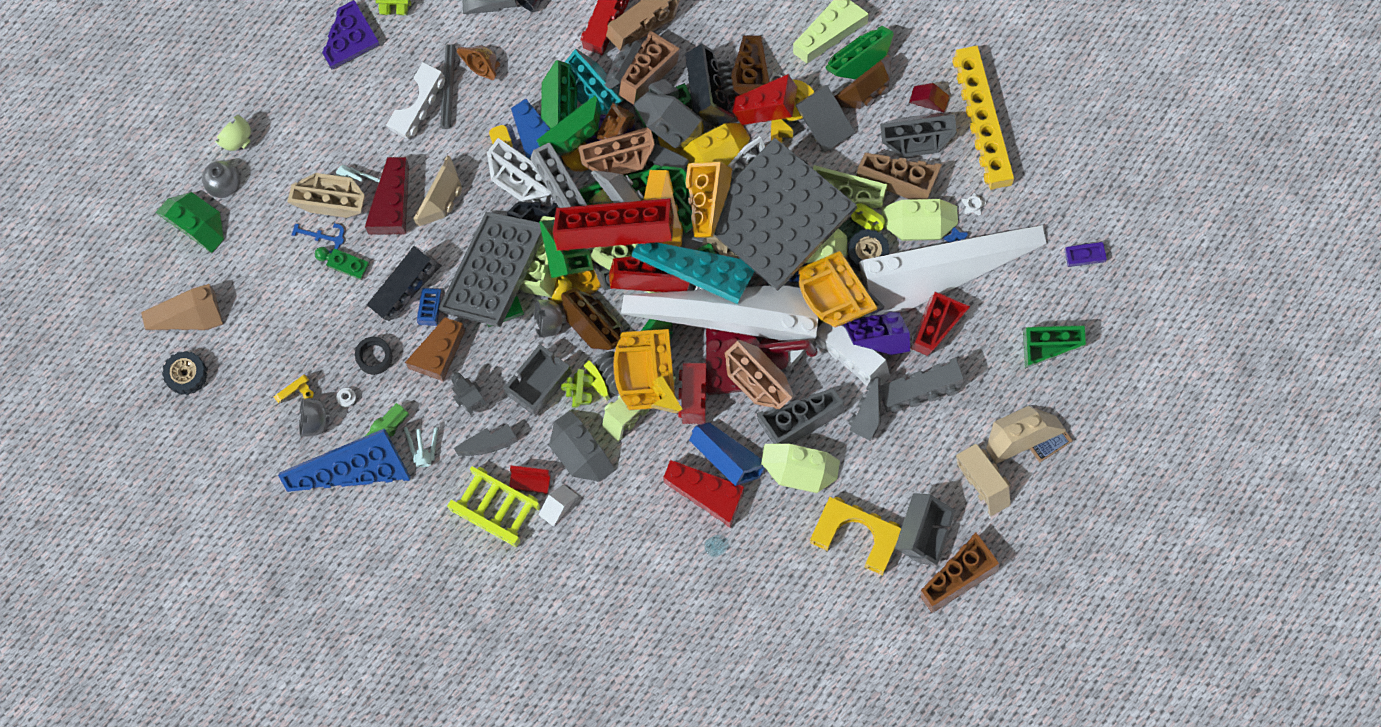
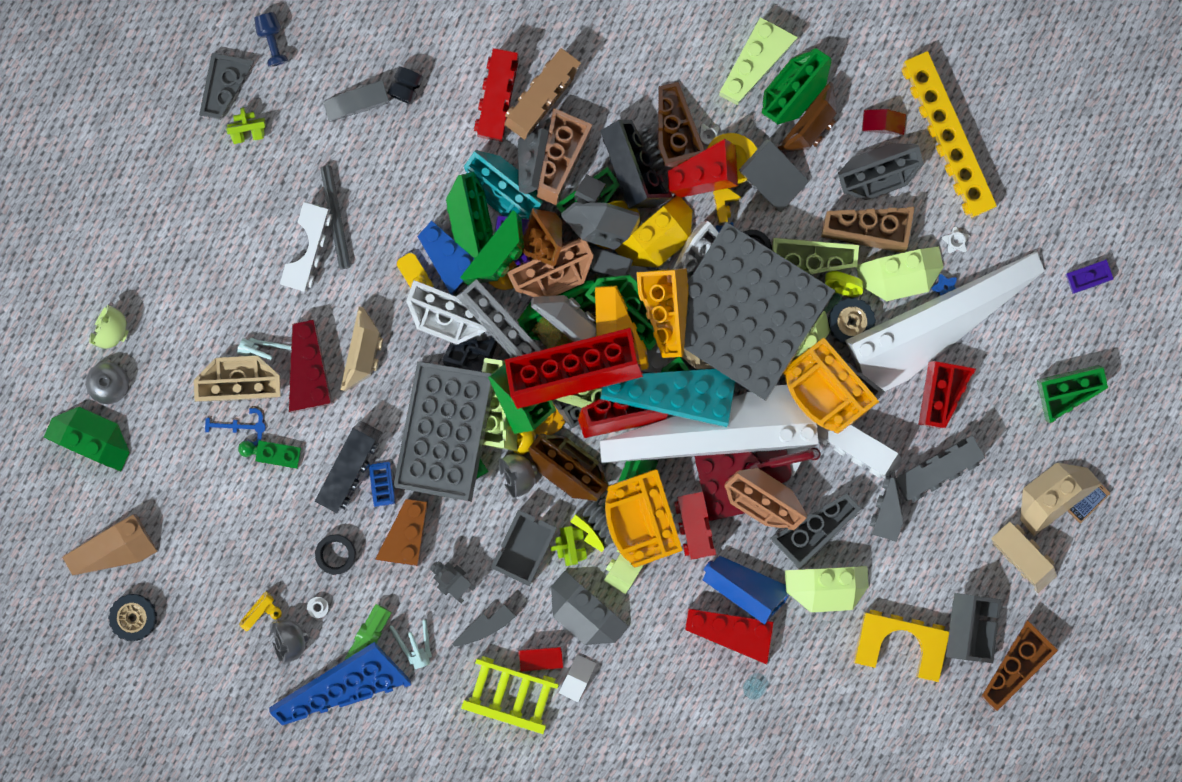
camera: 15 degrees left, 15 degrees up
(348, 36) = (204, 178): dark purple plate -> none
(480, 60) = (367, 179): dark orange hat -> none
(668, 402) = (673, 551): yellow slope -> none
(880, 333) = (887, 421): dark purple slope -> none

